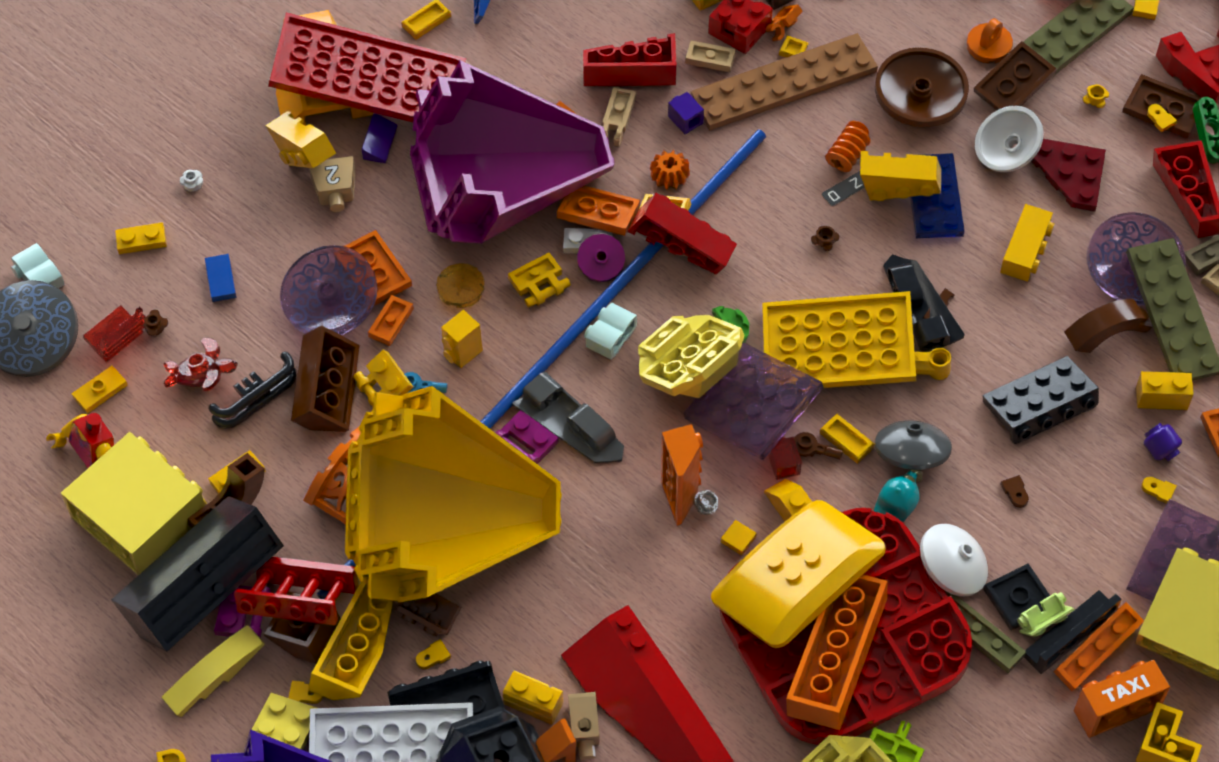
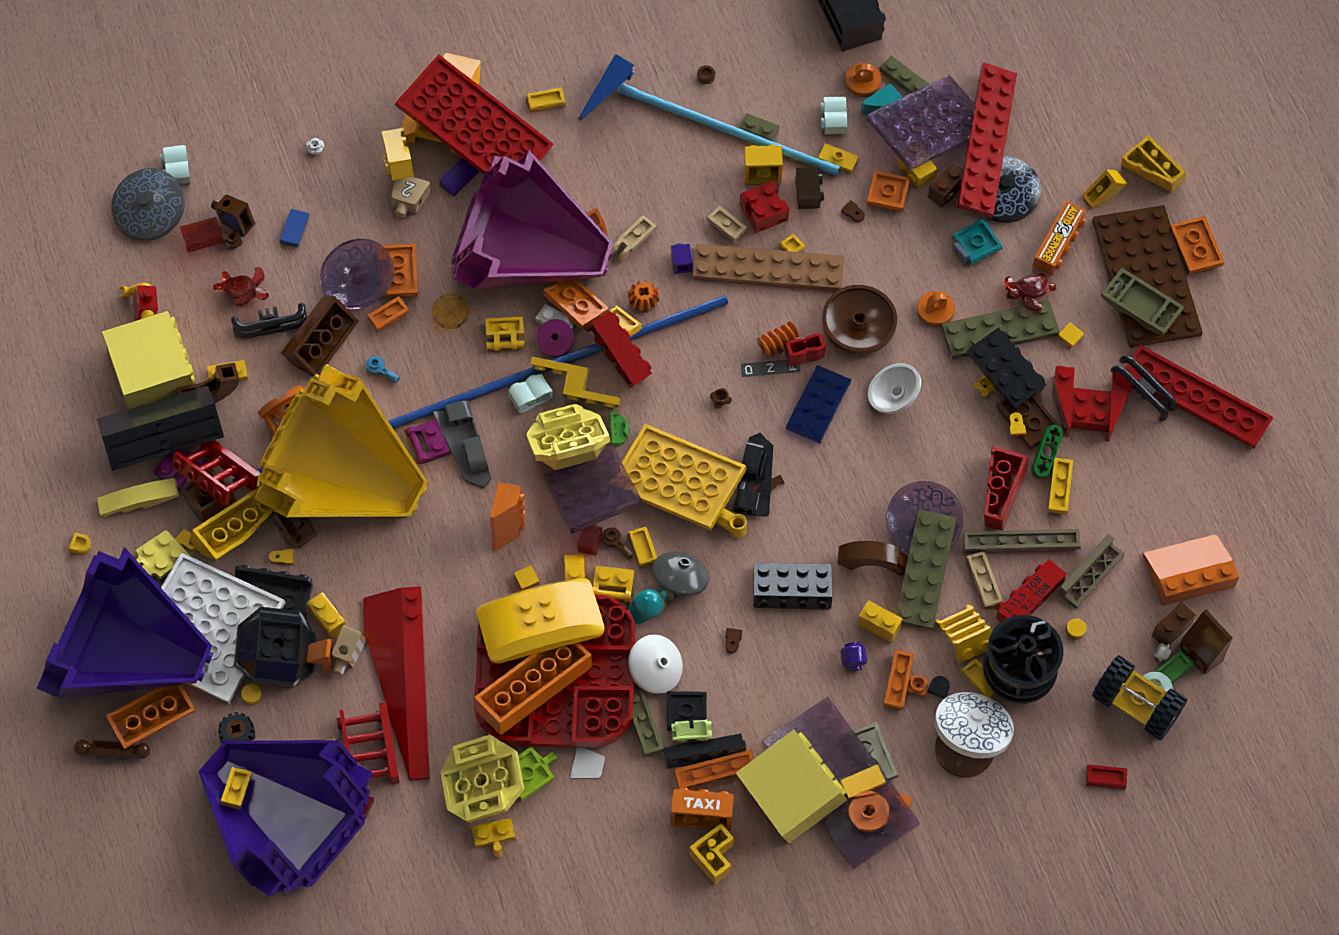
camera: 25 degrees right, 5 degrees up
(99, 389) = (172, 269): yellow plate -> none
(140, 289) = (234, 214): none -> reddish brown torso
(141, 238) = (258, 173): yellow plate -> none
(385, 373) = (362, 354): yellow plate -> none
(461, 339) = (423, 351): yellow brick -> none
(632, 64) = (666, 204): red wedge -> none
(656, 293) = (575, 382): none -> yellow bracket
(705, 502) = (519, 543): clear smoke plate -> none
(785, 17) = (798, 220): orange plate -> none
(842, 488) = (616, 579): none -> yellow plate
(889, 140) = (807, 349): none -> red brick
(900, 177) = (794, 379): yellow wedge -> none
(947, 716) = (587, 764): none -> white sticker
(1015, 78) = (931, 345): reddish brown plate -> none
(1027, 243) = (858, 470): yellow brick -> none
(1073, 171) = (929, 432): dark red plate -> none
(1112, 64) = (1006, 368): none -> black bracket
(1163, 490) = (832, 690): yellow piece -> none

